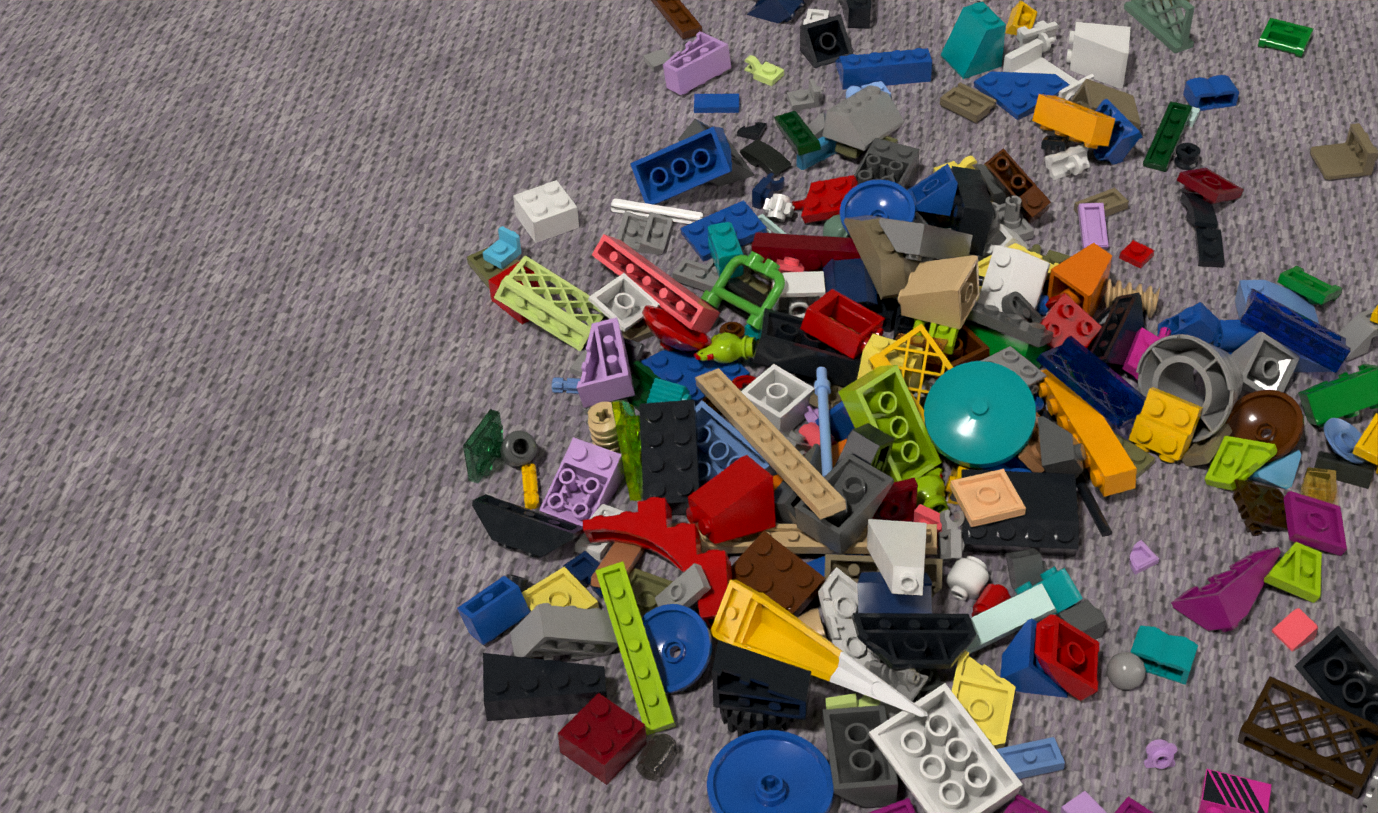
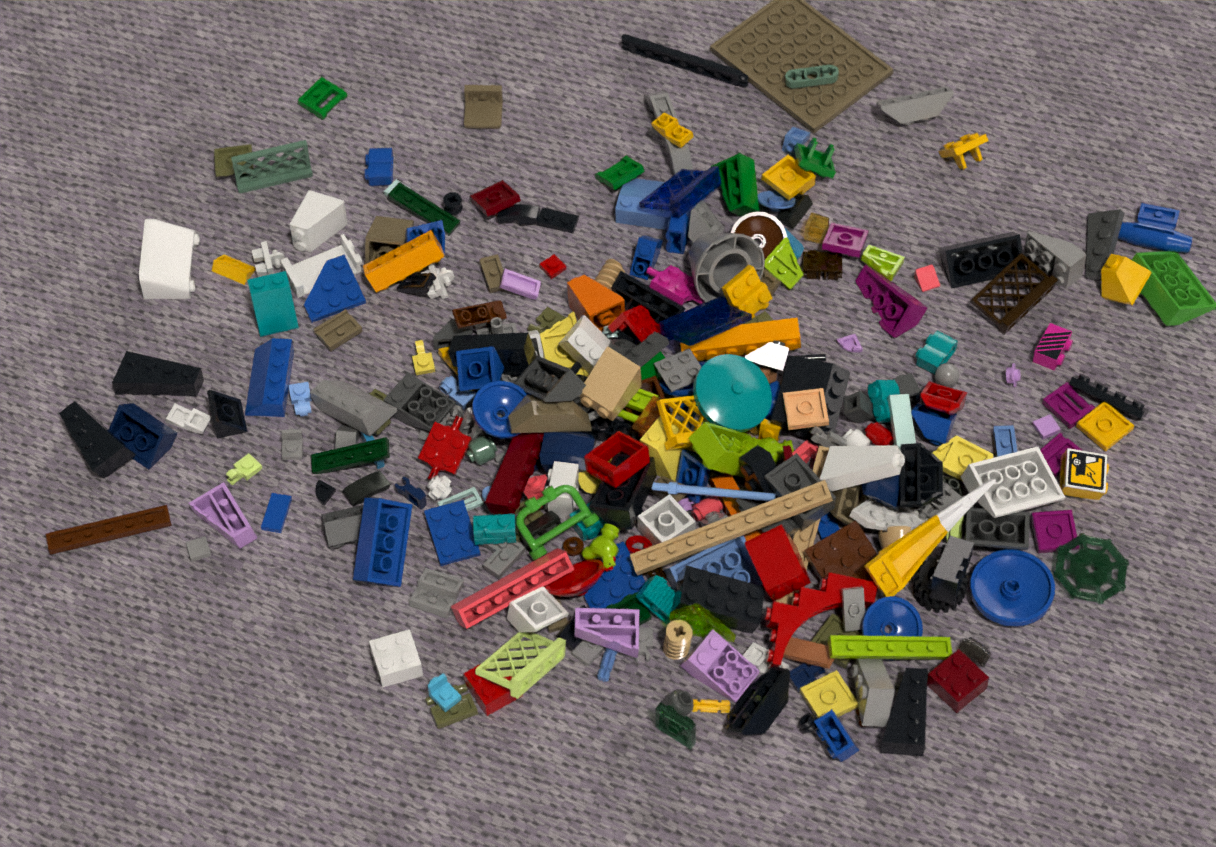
camera: 80 degrees left, 10 degrees up
(642, 209) = (412, 579): white axle -> none

